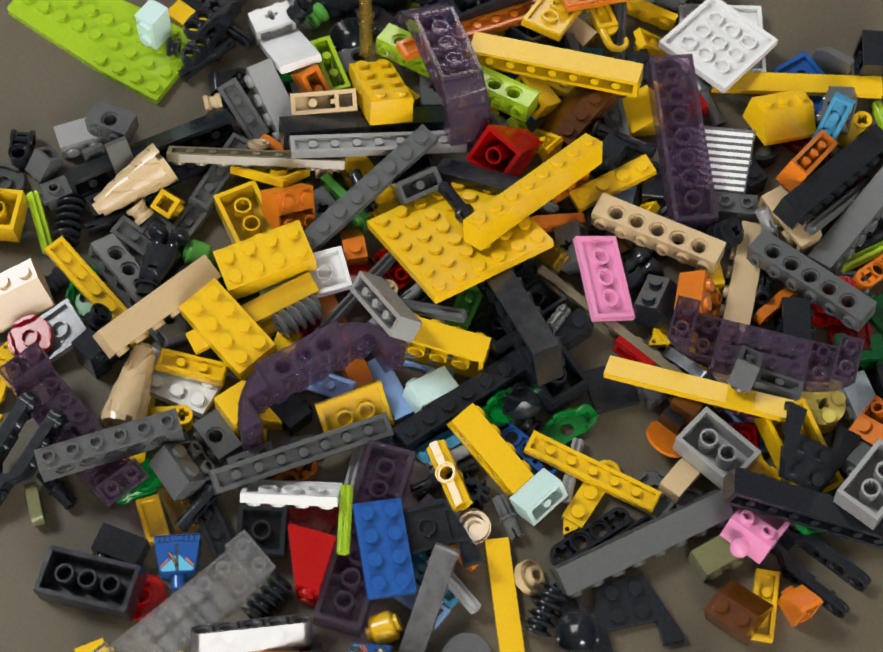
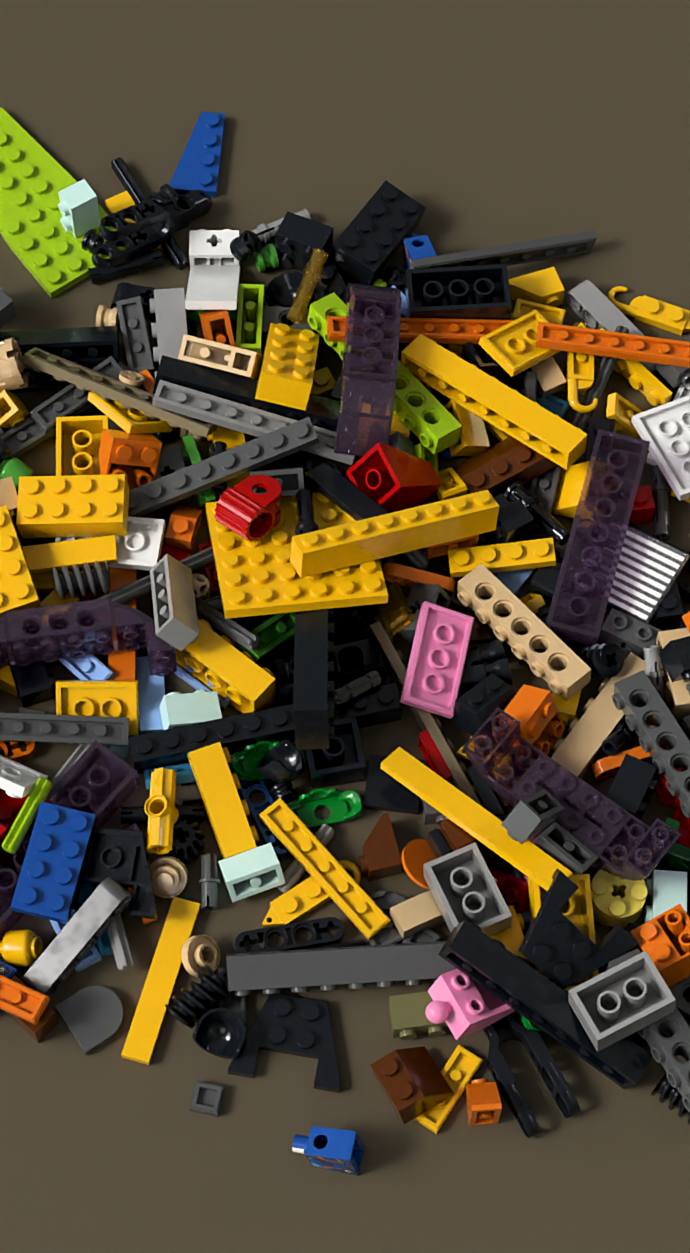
camera: 25 degrees right, 0 degrees up
(411, 214) = (241, 506): none -> red piece
(628, 442) = (380, 851): none -> reddish brown slope

